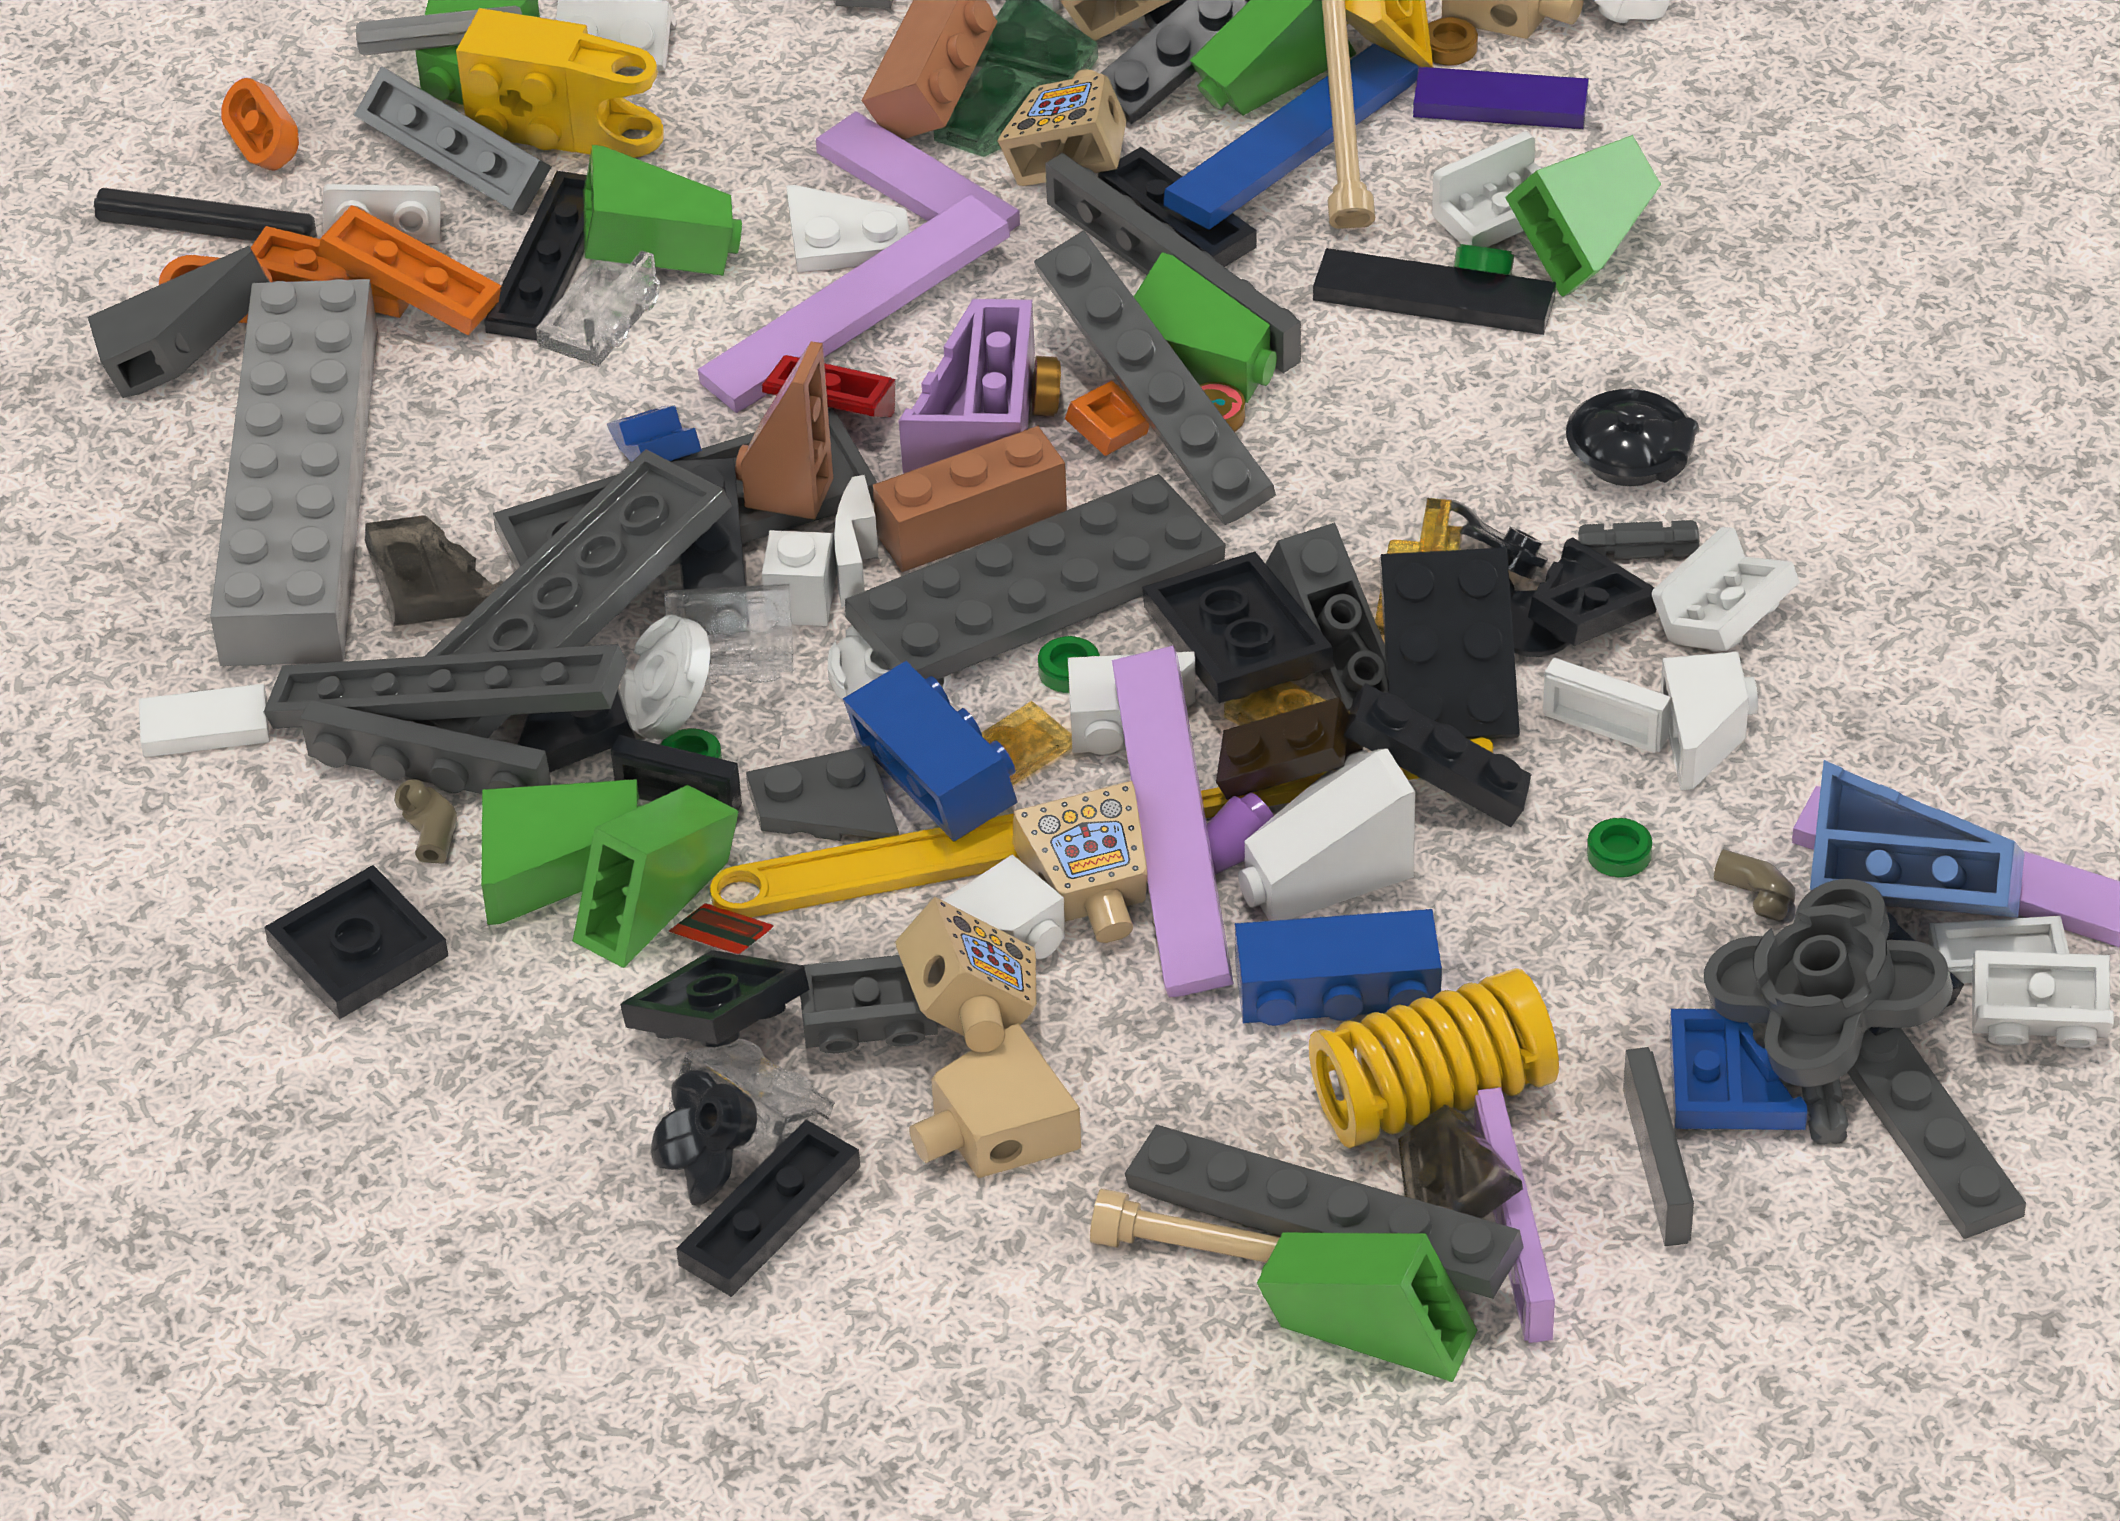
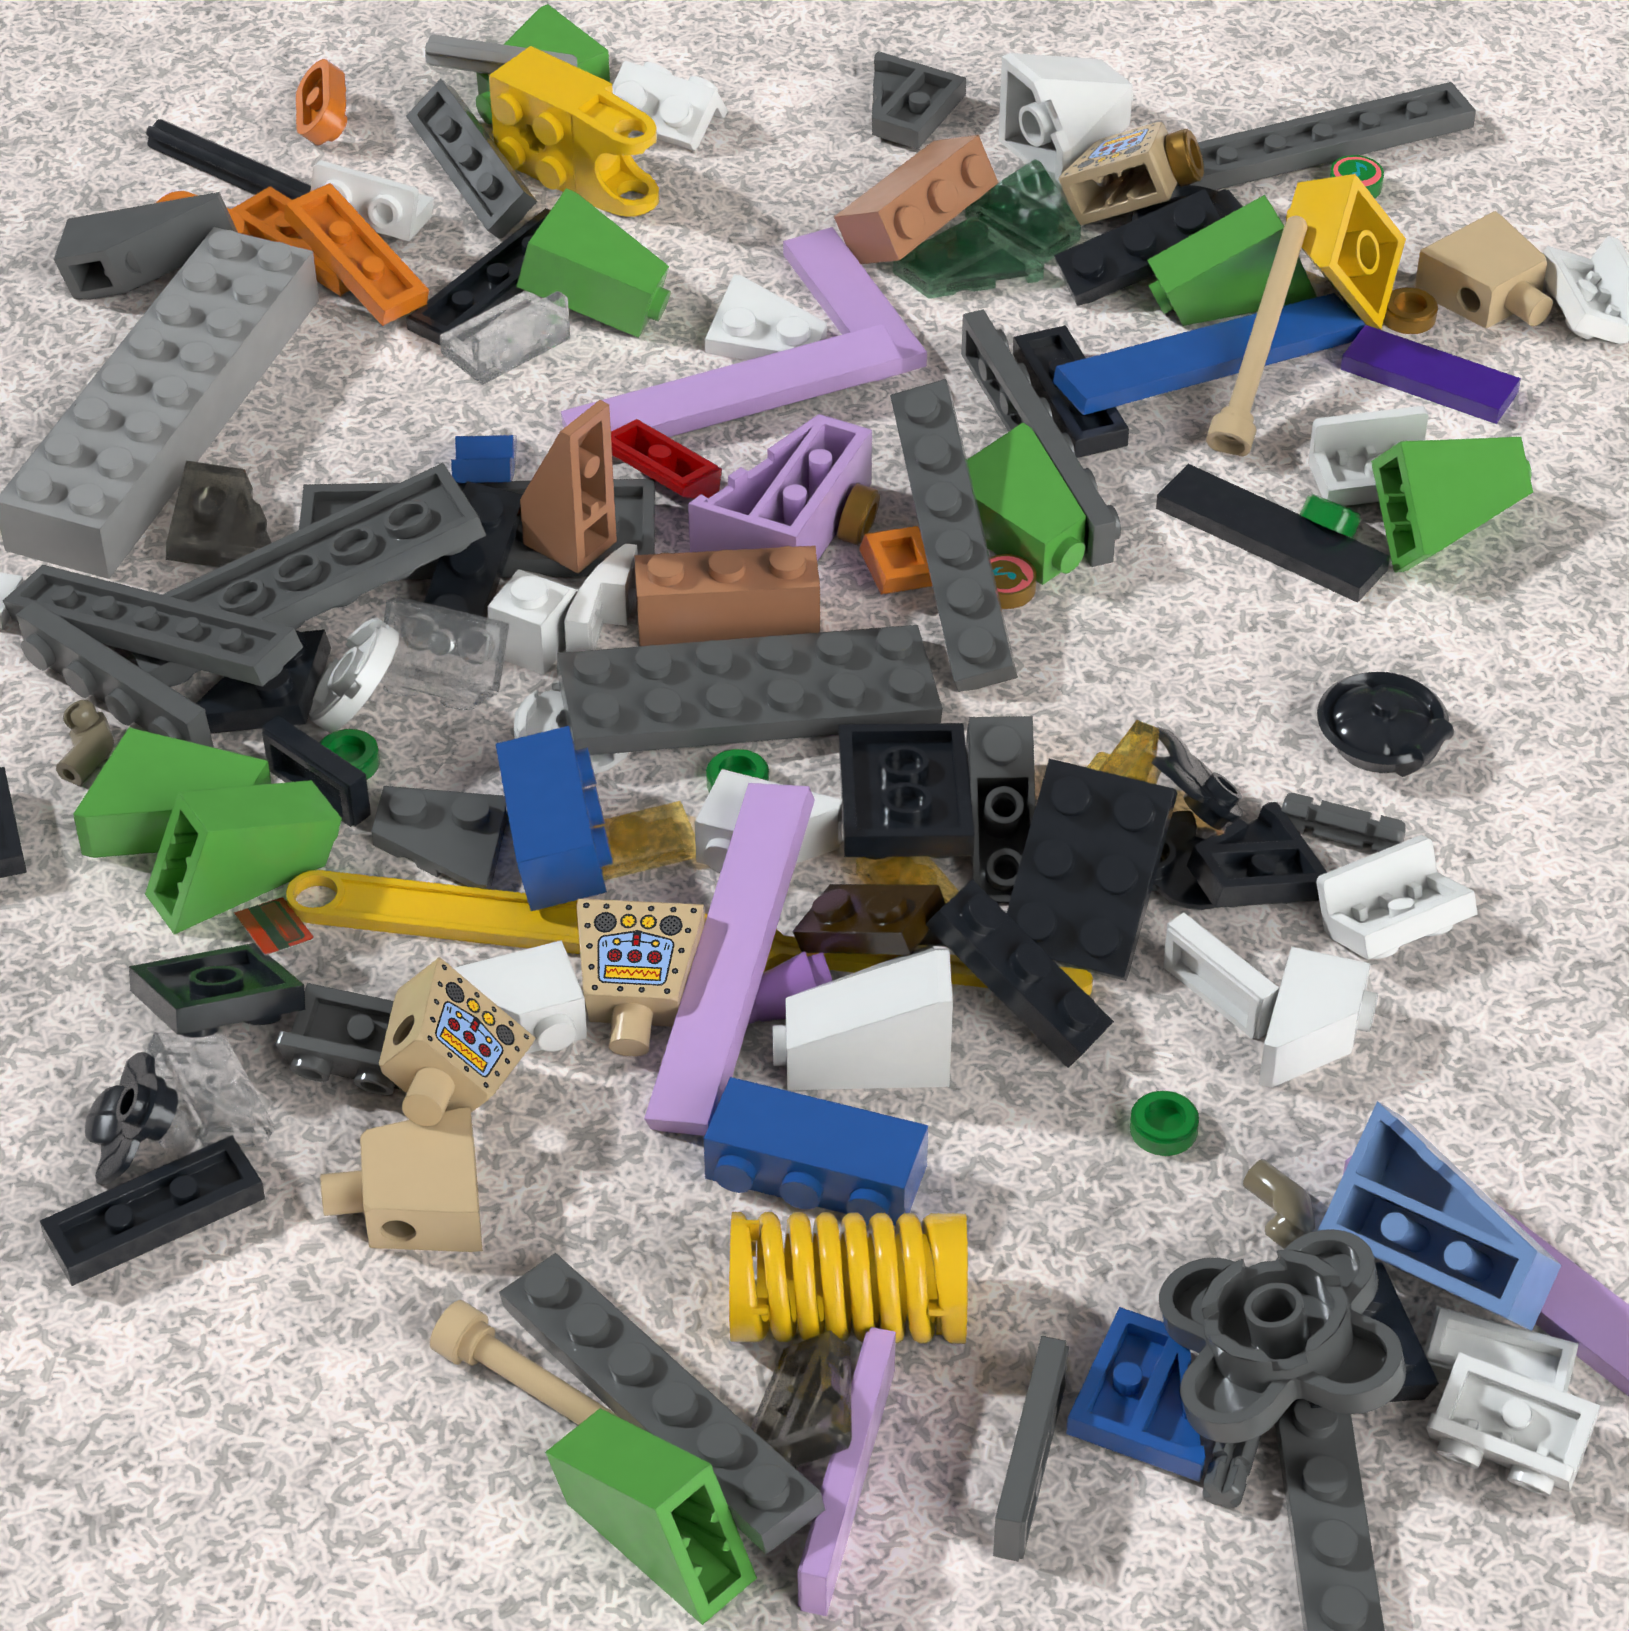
camera: 20 degrees right, 0 degrees up
(1066, 118) = (1011, 283): tan torso -> none

